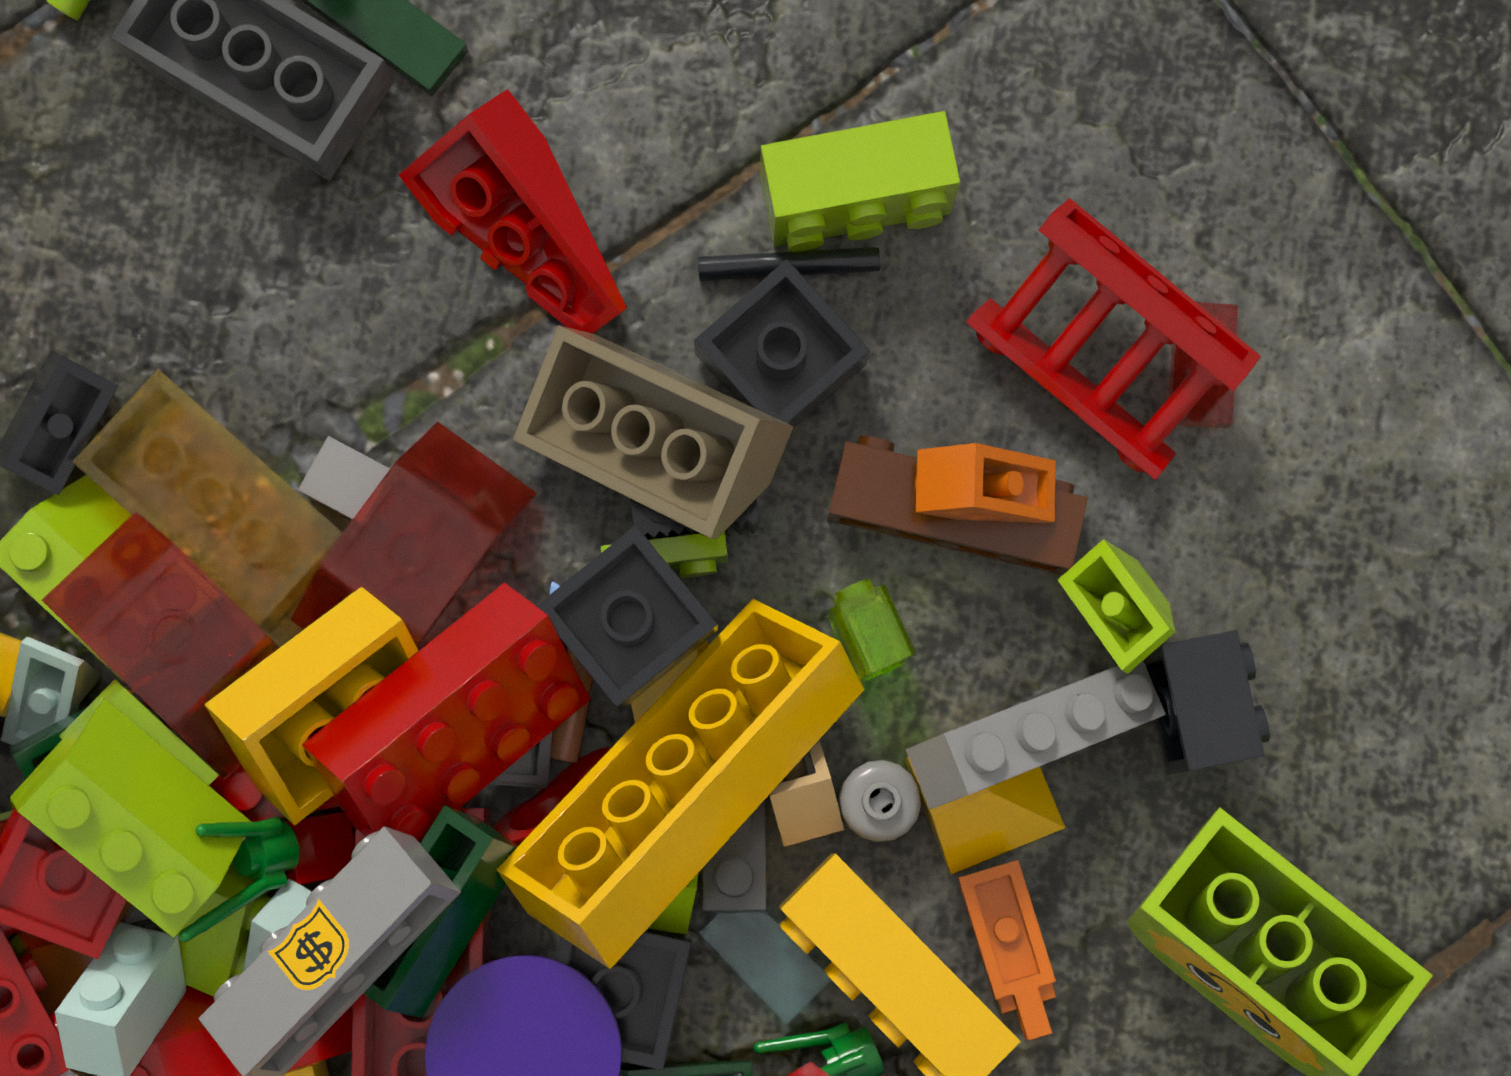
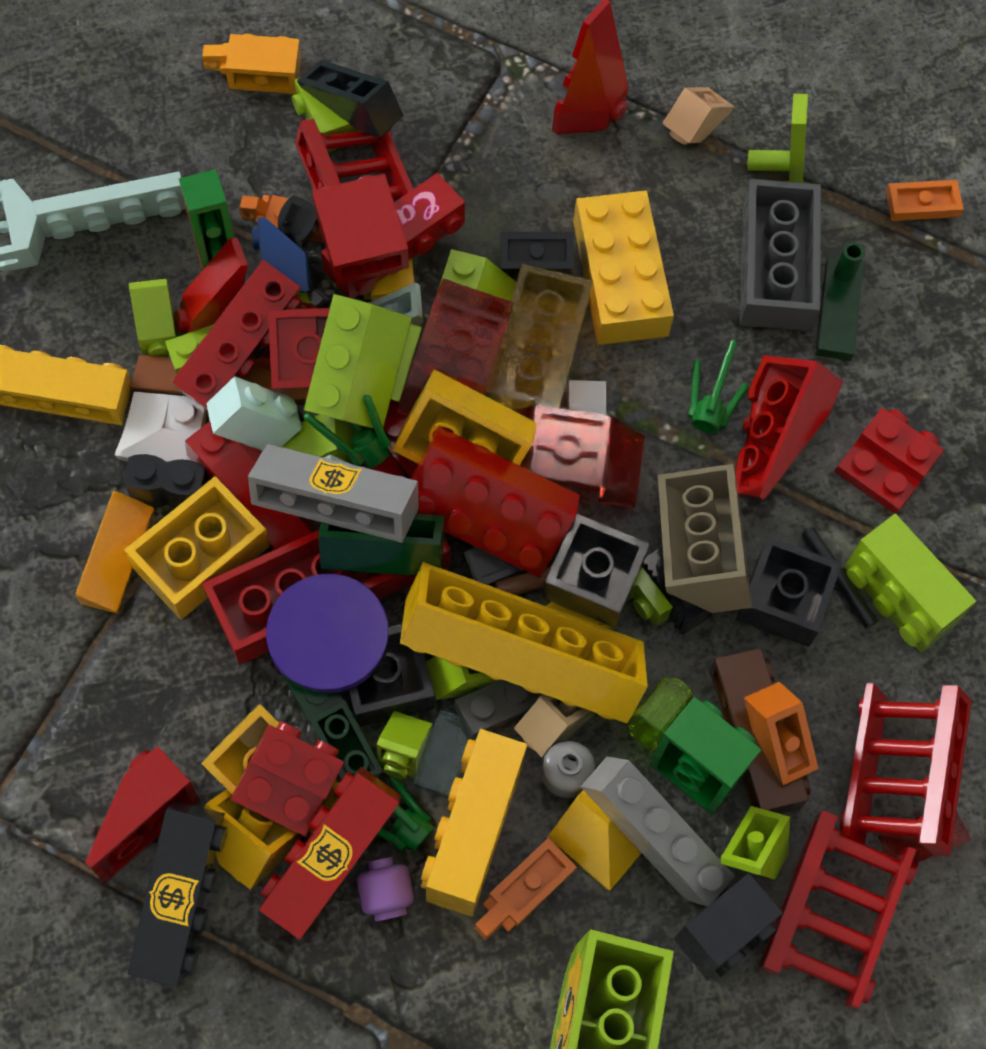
camera: 60 degrees right, 15 degrees down
(146, 304) = (626, 267): none -> yellow brick
(448, 306) = (709, 414): none -> green plant
(653, 88) = (890, 459): none -> red plate
(731, 1016) = (403, 745): none -> lime slope
(971, 608) = (704, 754): none -> green brick
(1185, 550) = (796, 914): none -> red fence

